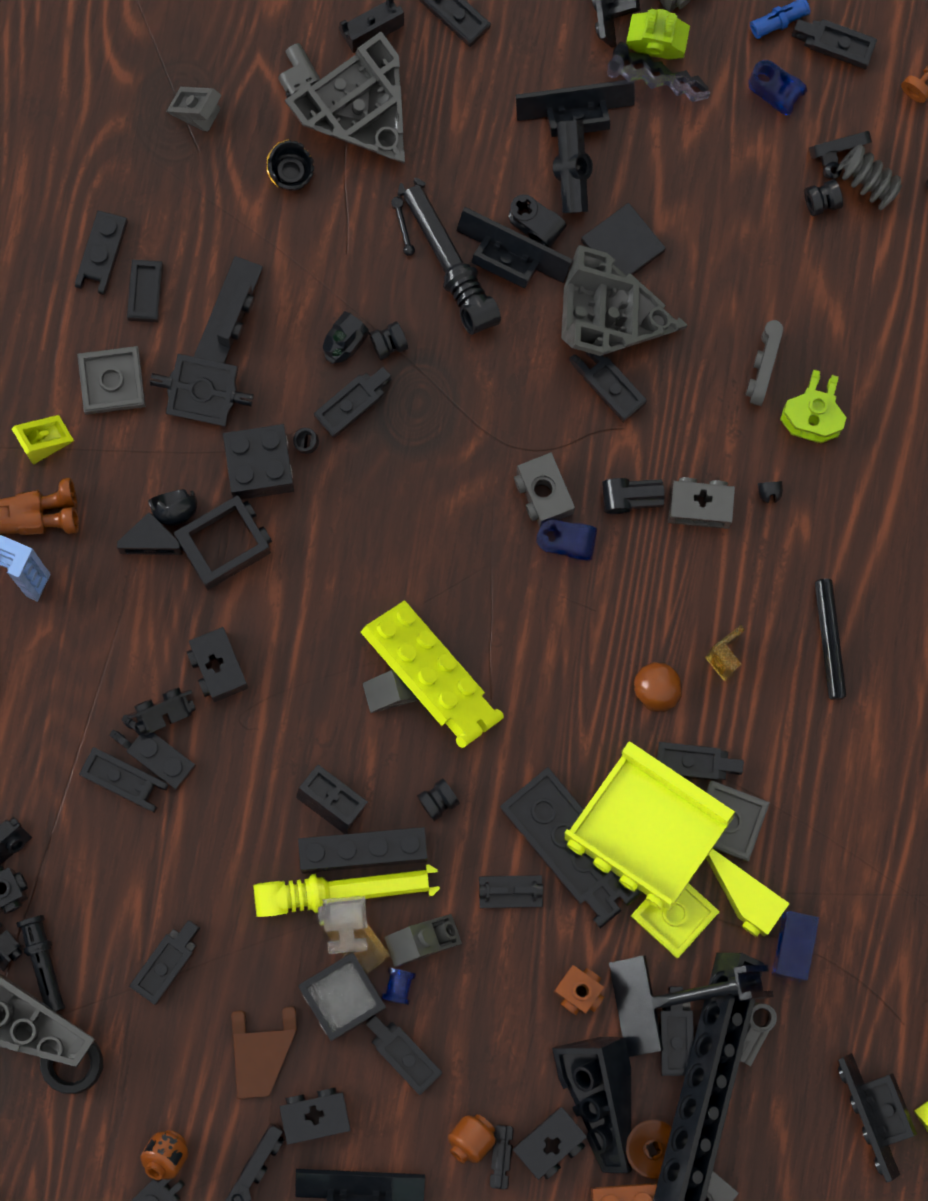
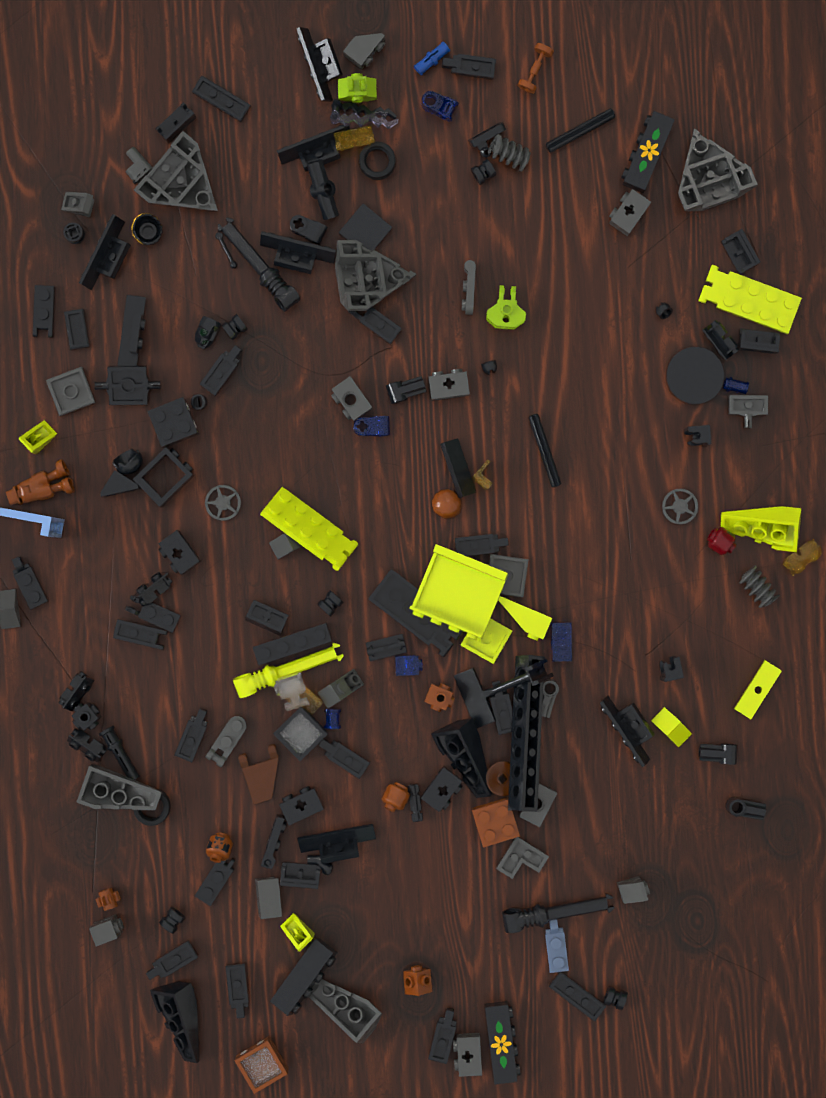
camera: 10 degrees left, 10 degrees up
(177, 154) = (76, 236): none -> black wheel
(219, 190) = (107, 255): none -> black bracket
(220, 982) = (227, 740): none -> dark grey plate
(305, 604) = (222, 502): none -> dark grey wheel
(540, 927) = (408, 665): none -> clear blue brick
(638, 103) = (354, 137): none -> clear yellow hinge
(670, 124) = (377, 146): none -> black tyre
(688, 634) = (458, 468): none -> black tile

